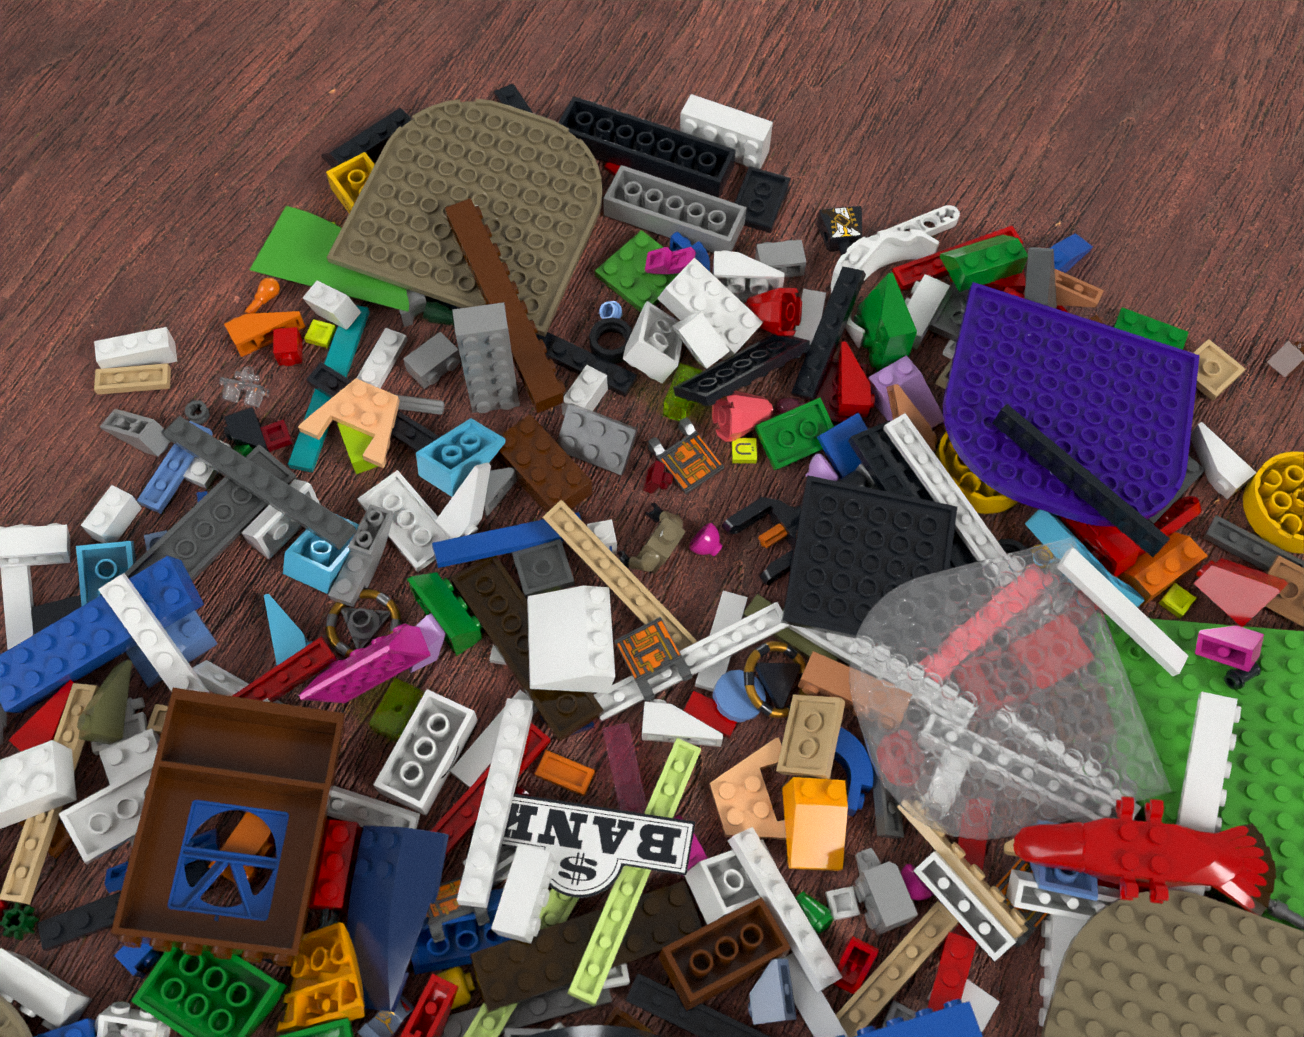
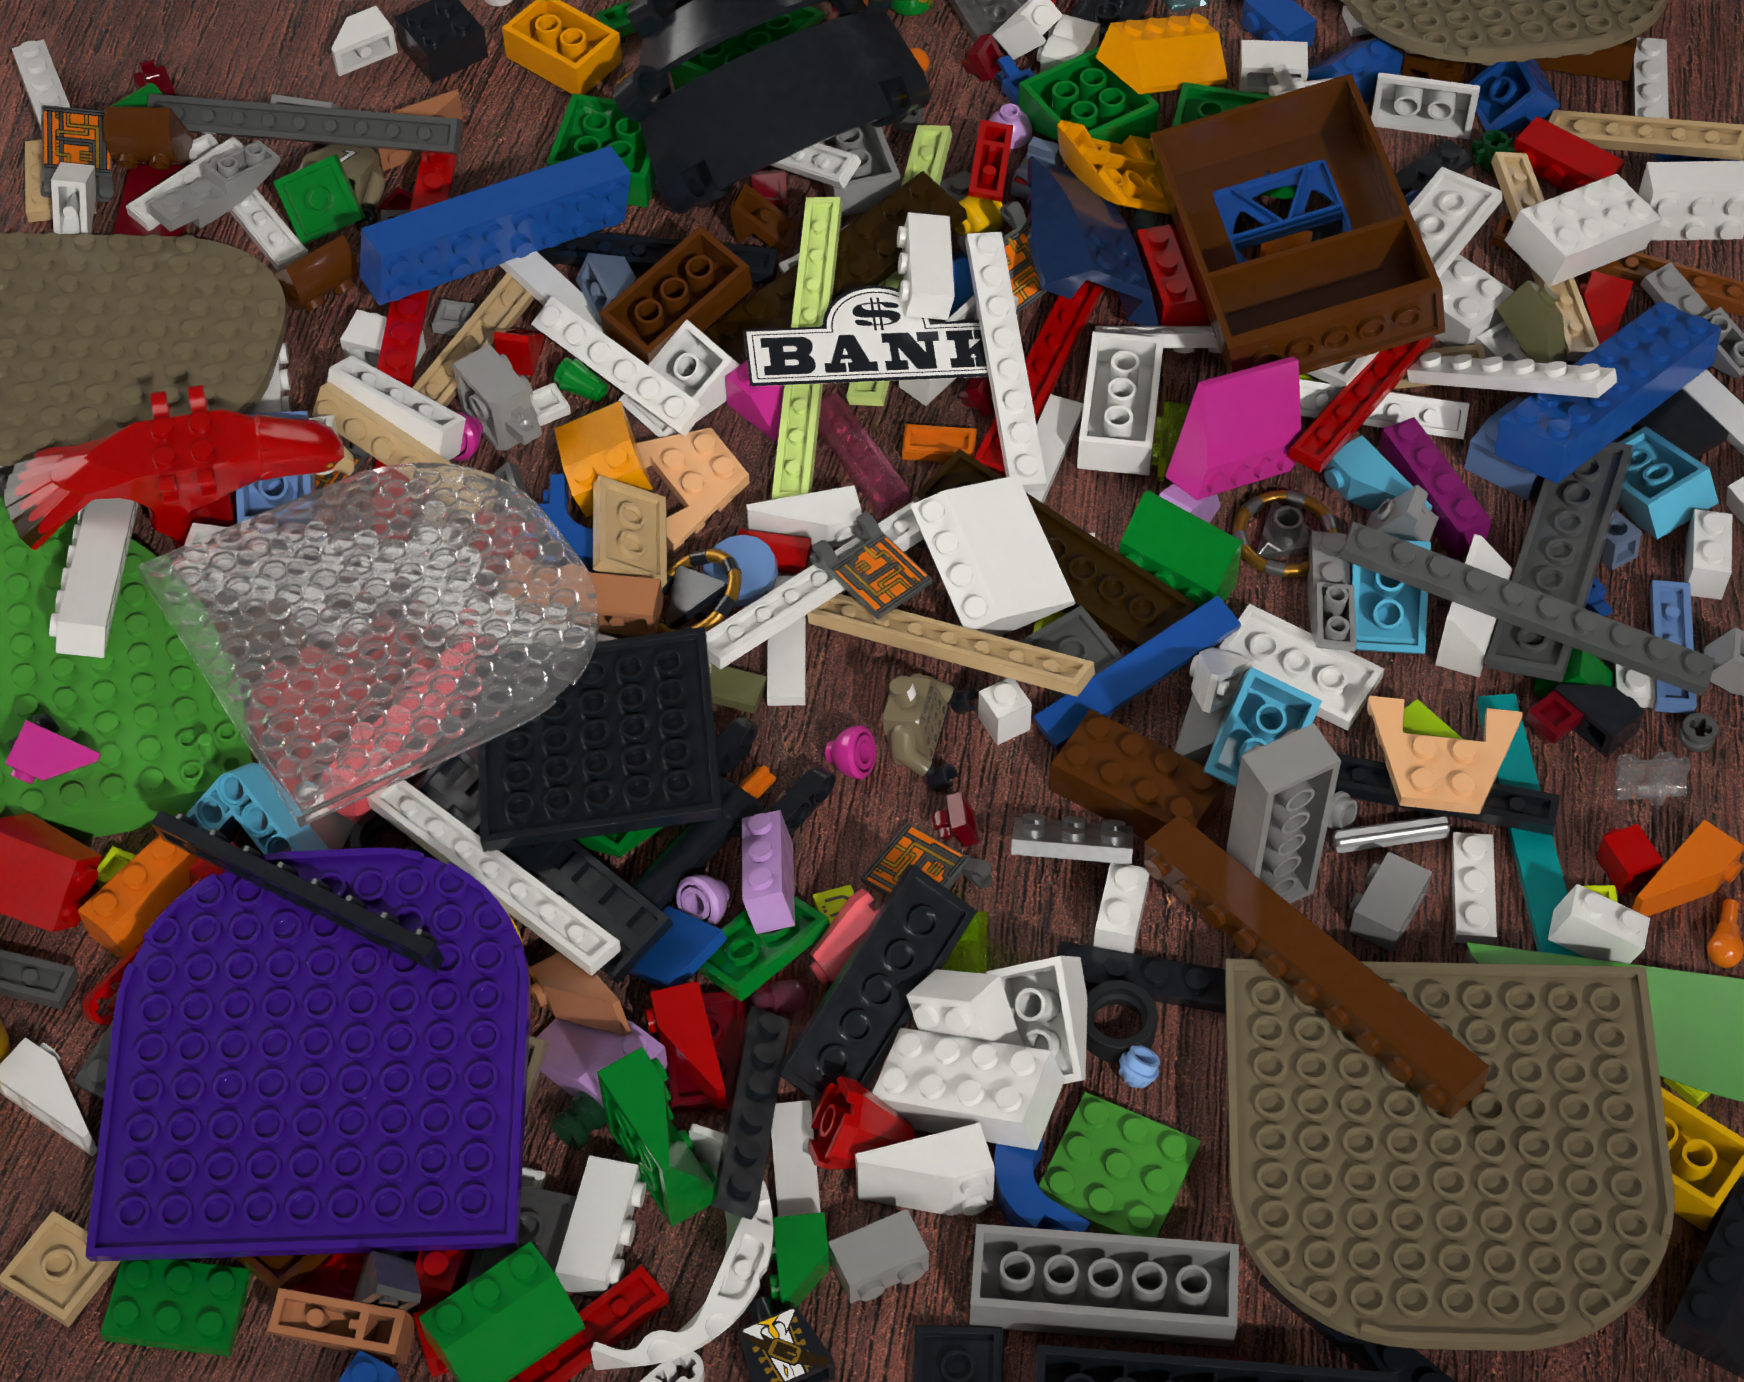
camera: 165 degrees right, 10 degrees down
(251, 619) = (1422, 464): none -> magenta brick
(290, 595) = (1405, 516): none -> light grey brick
(434, 421) = (1342, 811): none -> light grey plate
(667, 262) = (1071, 1173): dark pink slope -> none
(783, 463) = (768, 872): none -> lavender brick
(820, 269) = (801, 1257): none -> green slope
(926, 364) = (578, 1121): none -> clear green wheel
(1122, 611) = (217, 743): white tile -> none

